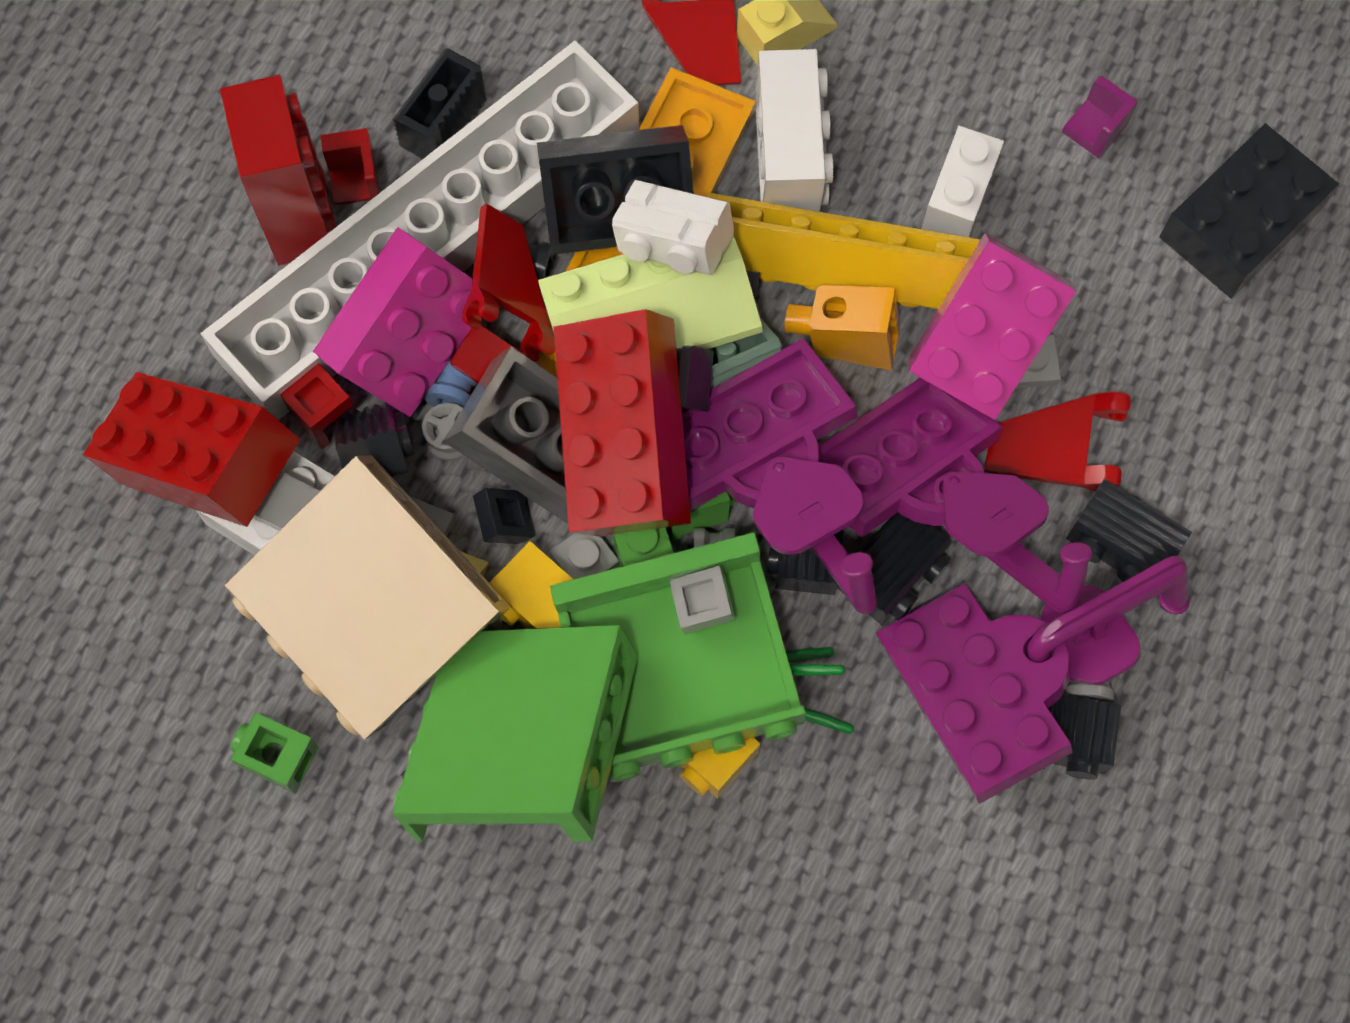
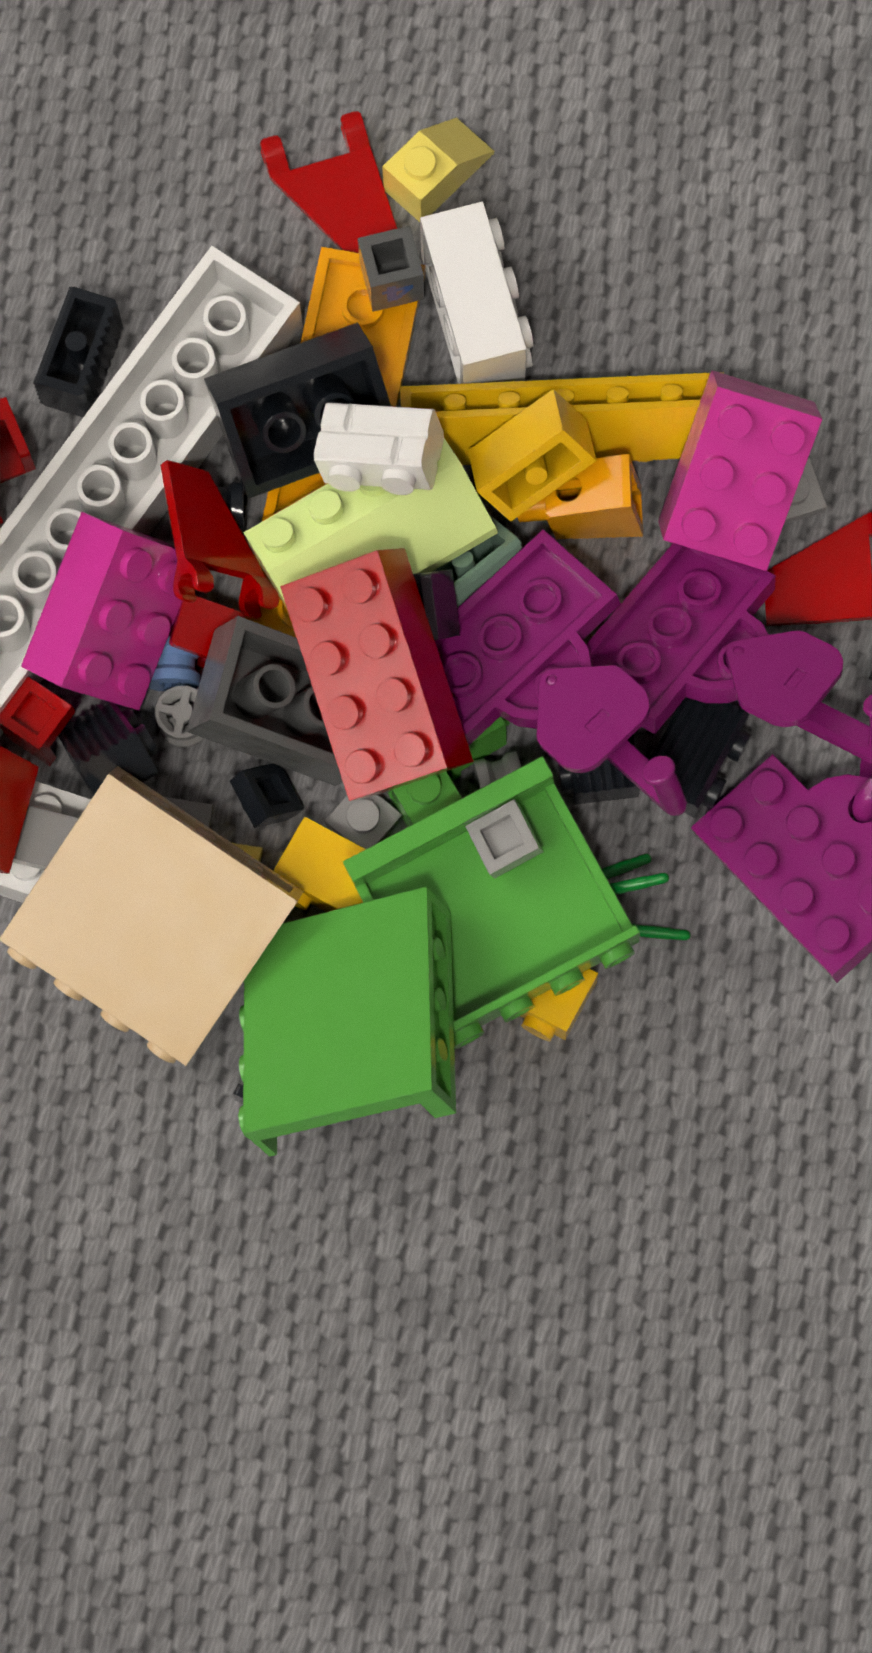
camera: 10 degrees left, 5 degrees up
(258, 736) = (76, 1082): bright green brick -> none
(724, 91) = (391, 268): none -> dark grey brick
(808, 270) = (531, 455): none -> yellow brick
(962, 183) = (674, 311): white brick -> none
(1100, 117) = (808, 198): magenta panel -> none

